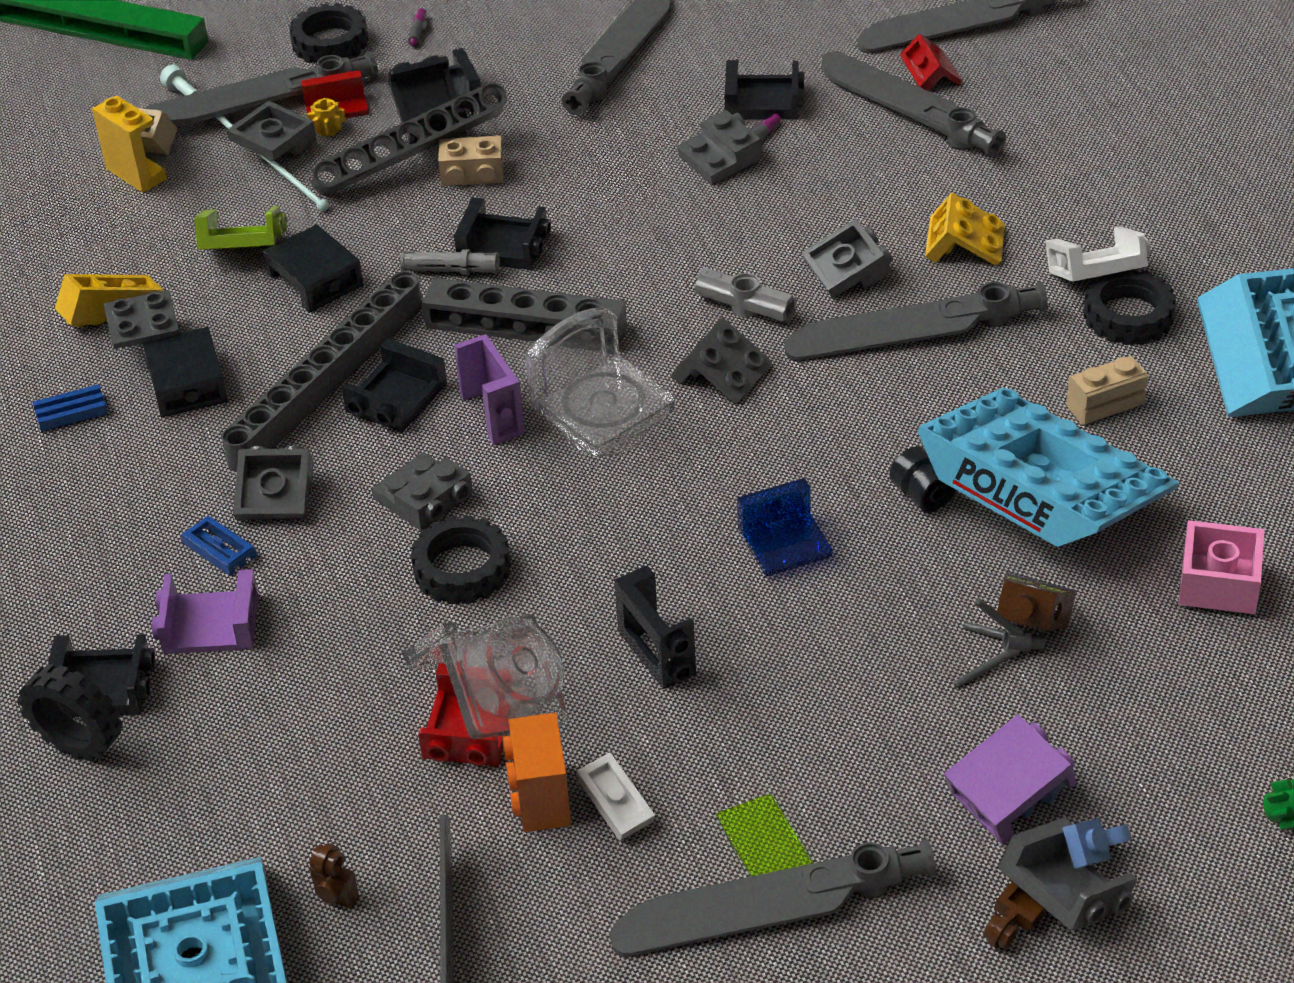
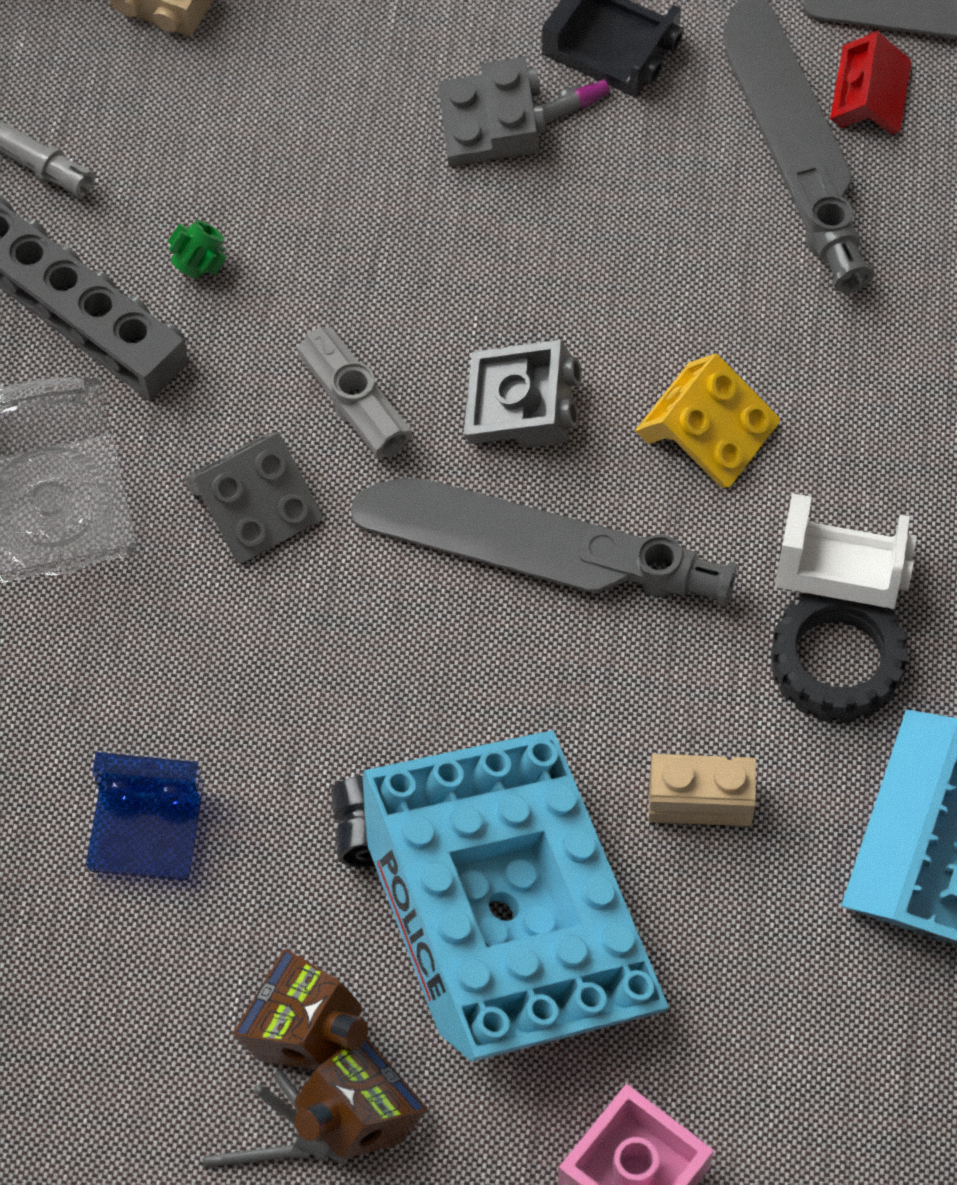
camera: 25 degrees right, 20 degrees up
(513, 238) = (119, 138): black panel -> none
(594, 264) = (197, 249): none -> green gear
(962, 575) = (300, 1016): none -> reddish brown torso

